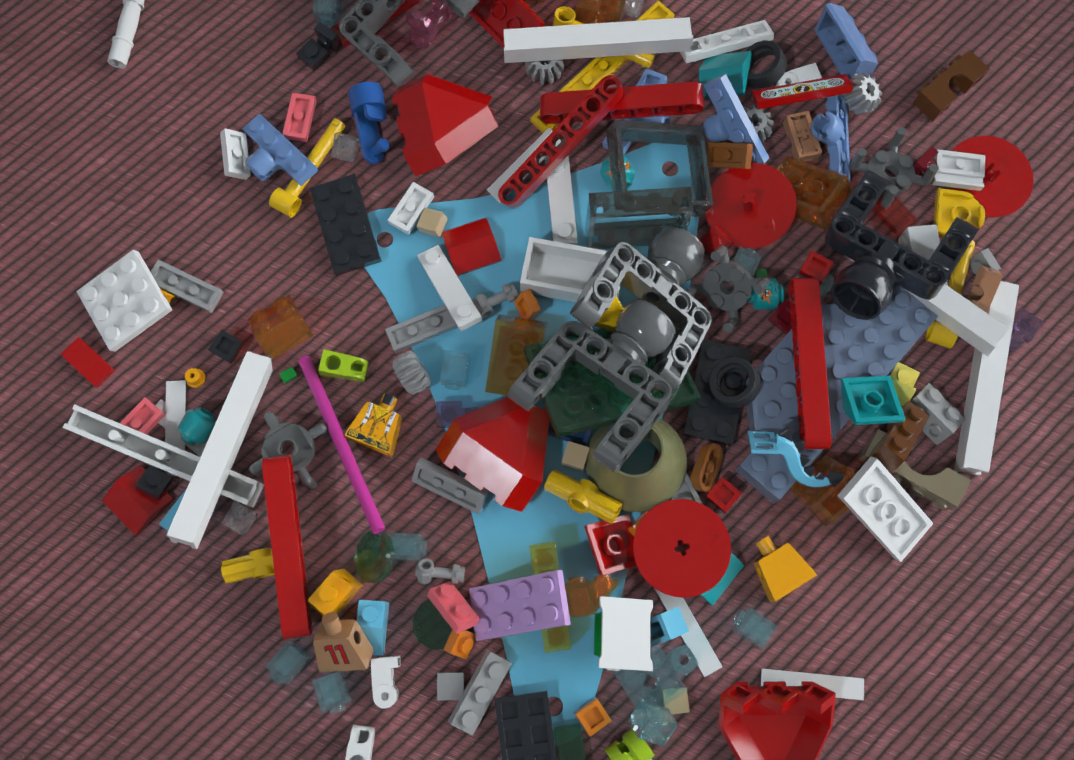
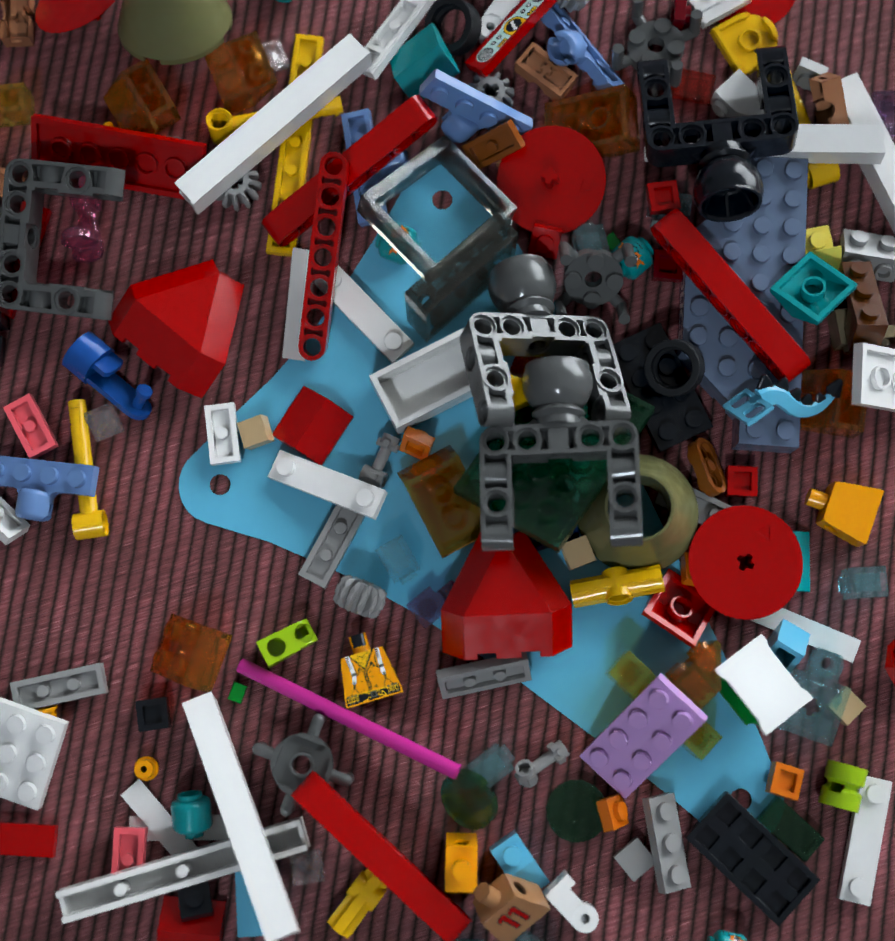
camera: 40 degrees left, 5 degrees up
(345, 225) = (169, 500): black plate -> none
(453, 607) = (581, 786): coral plate -> none
(653, 723) = (845, 743): clear light blue brick -> none

